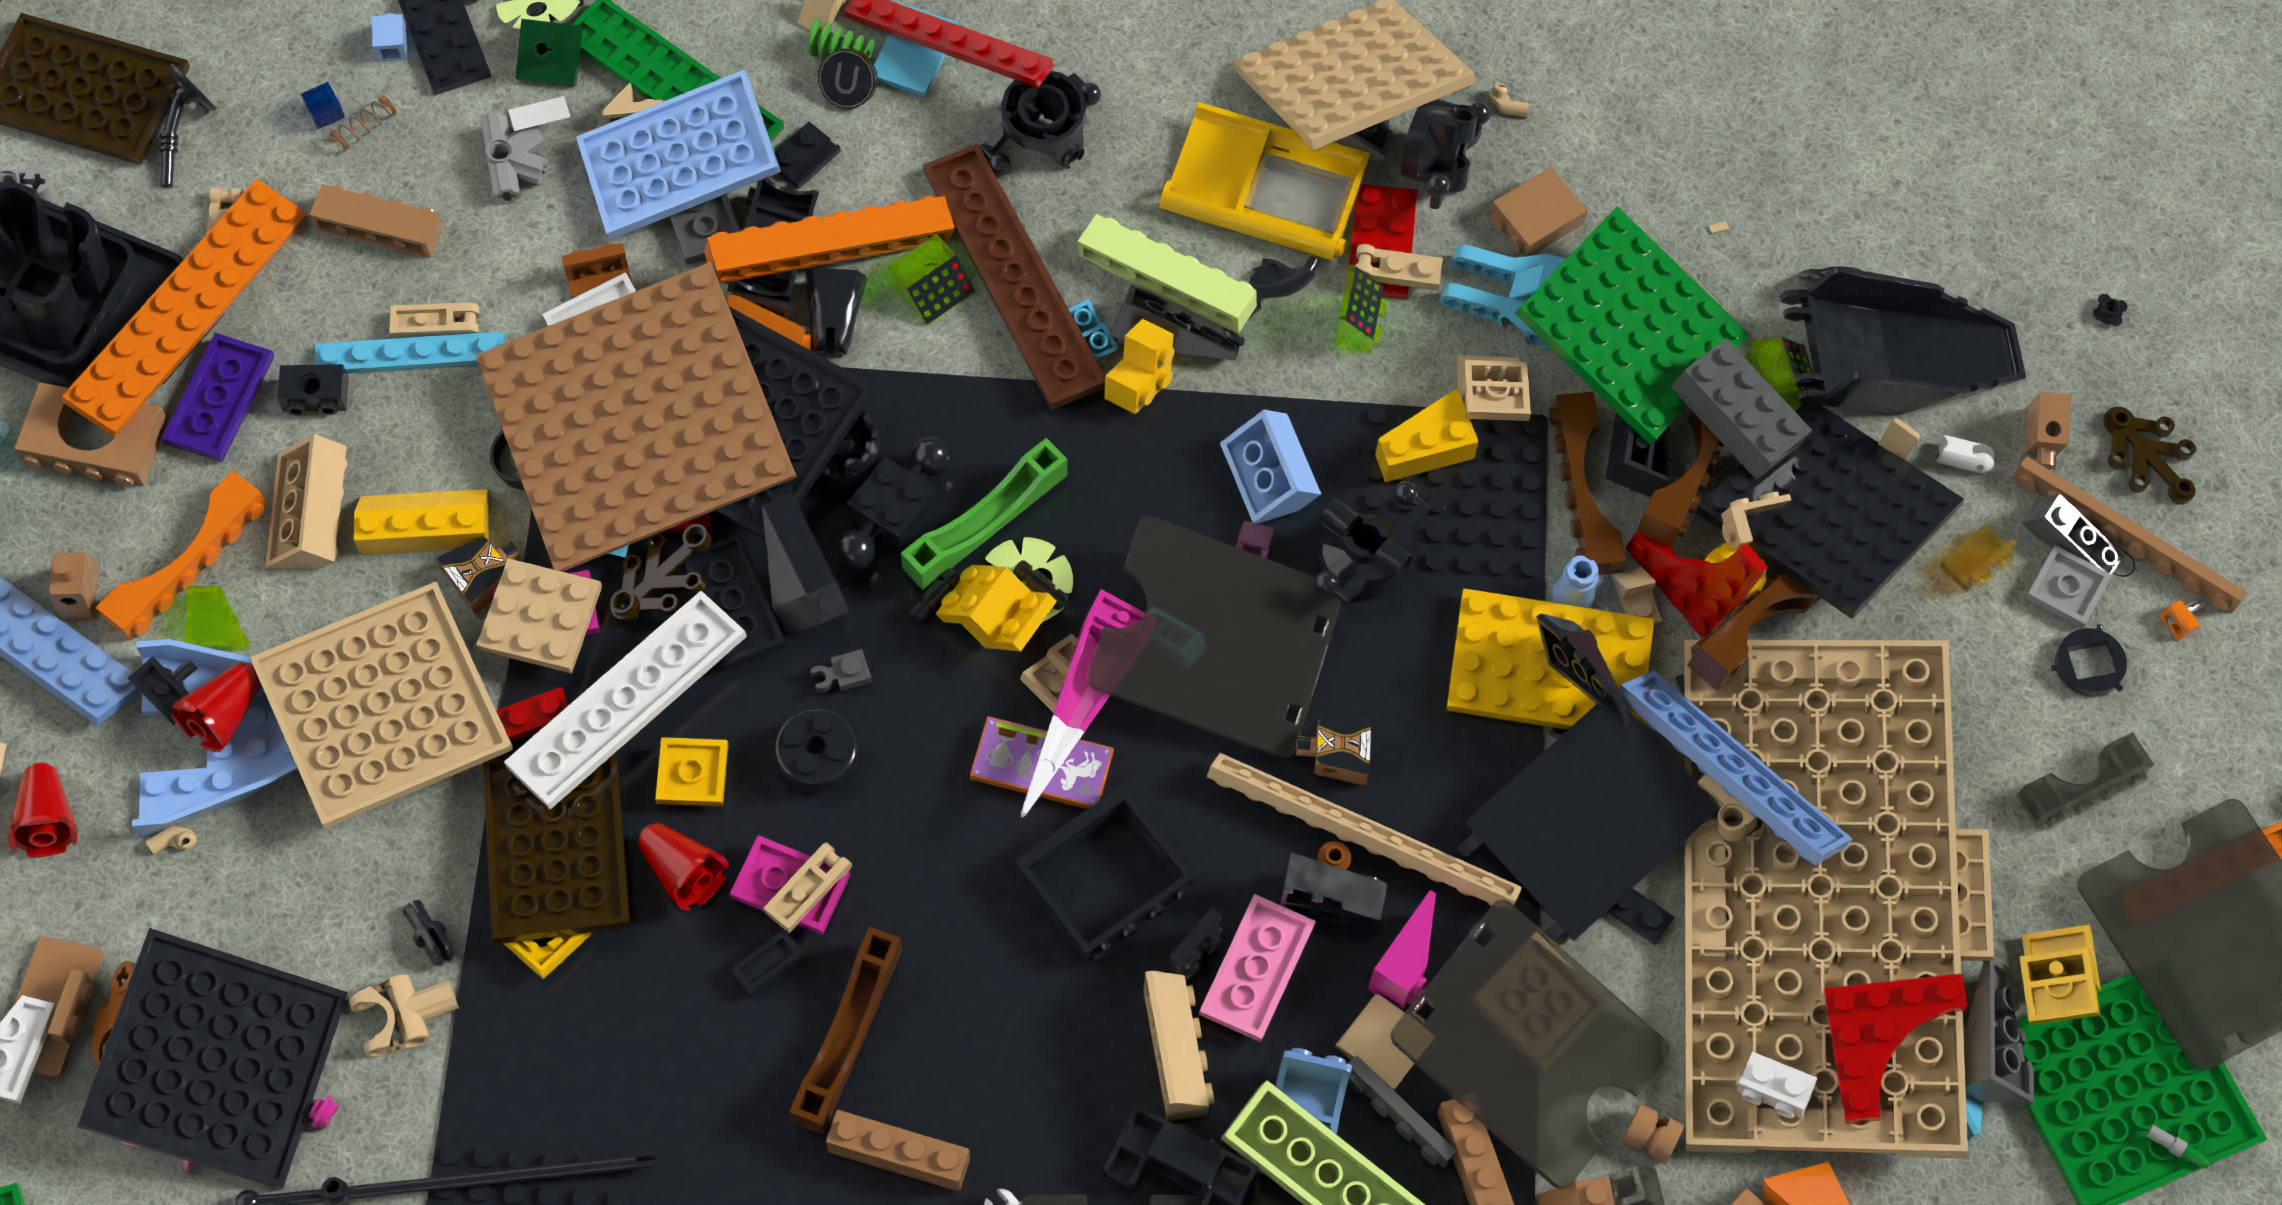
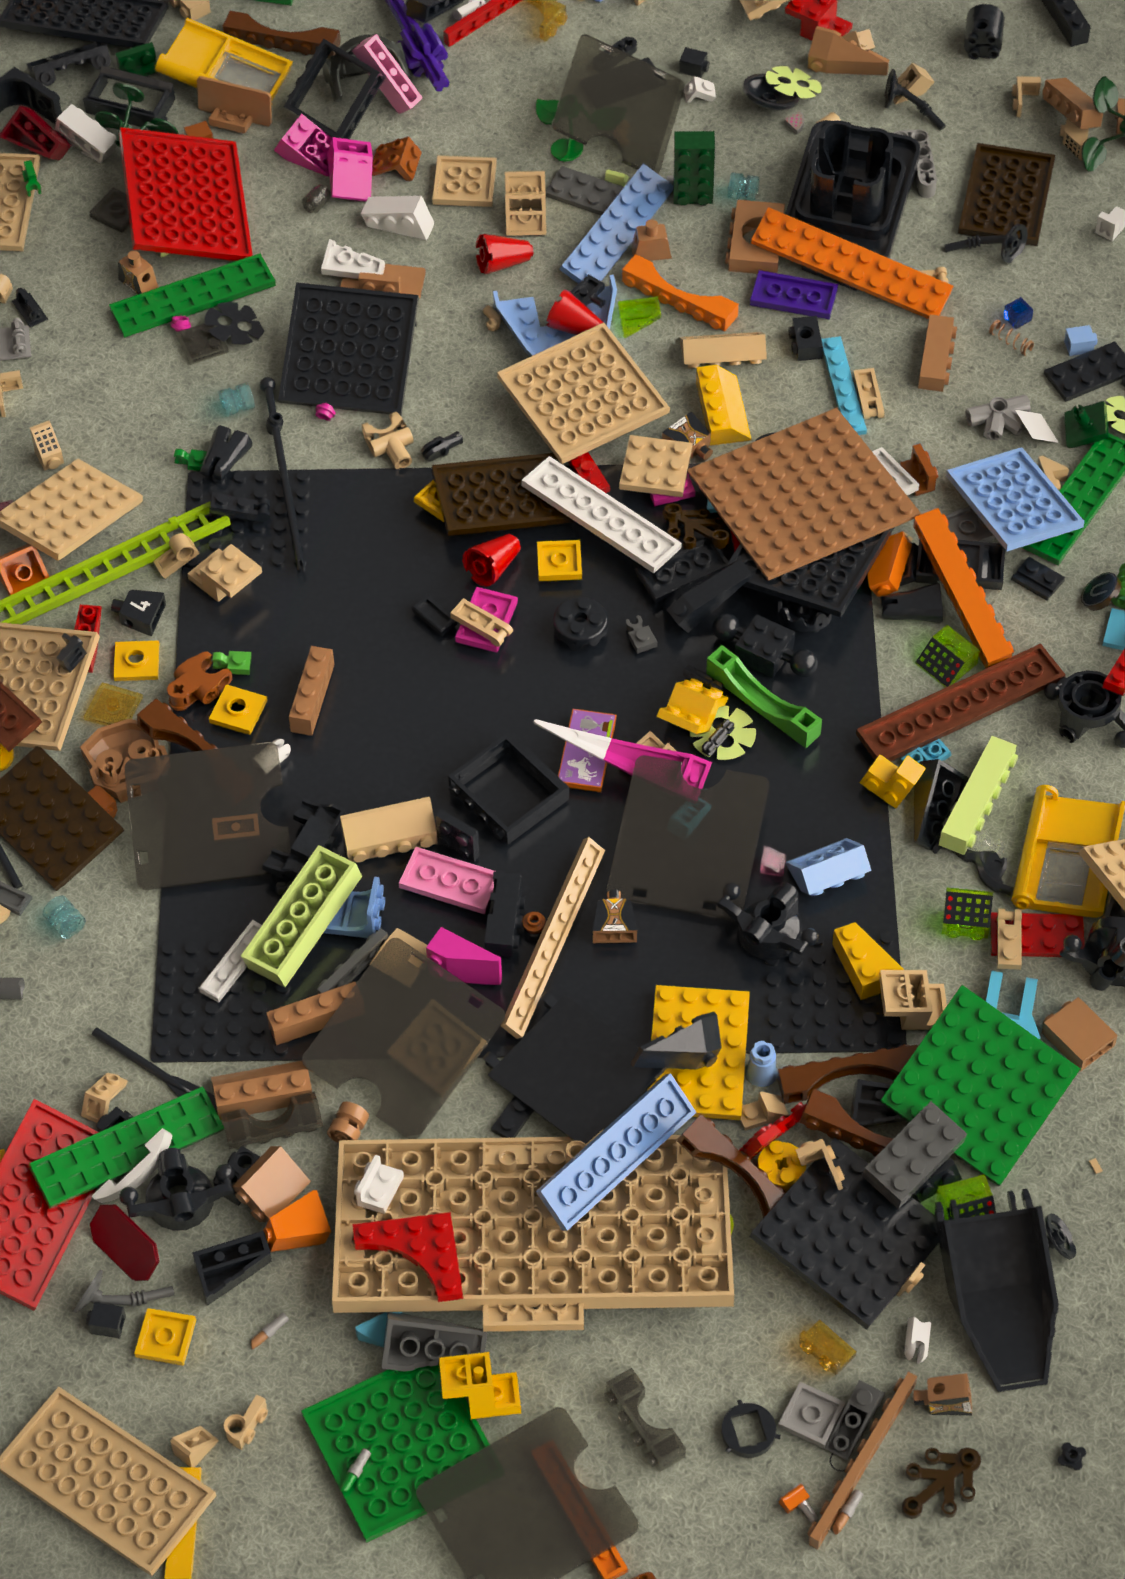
camera: 90 degrees right, 10 degrees down
(835, 1060) = (427, 664): reddish brown arch -> none

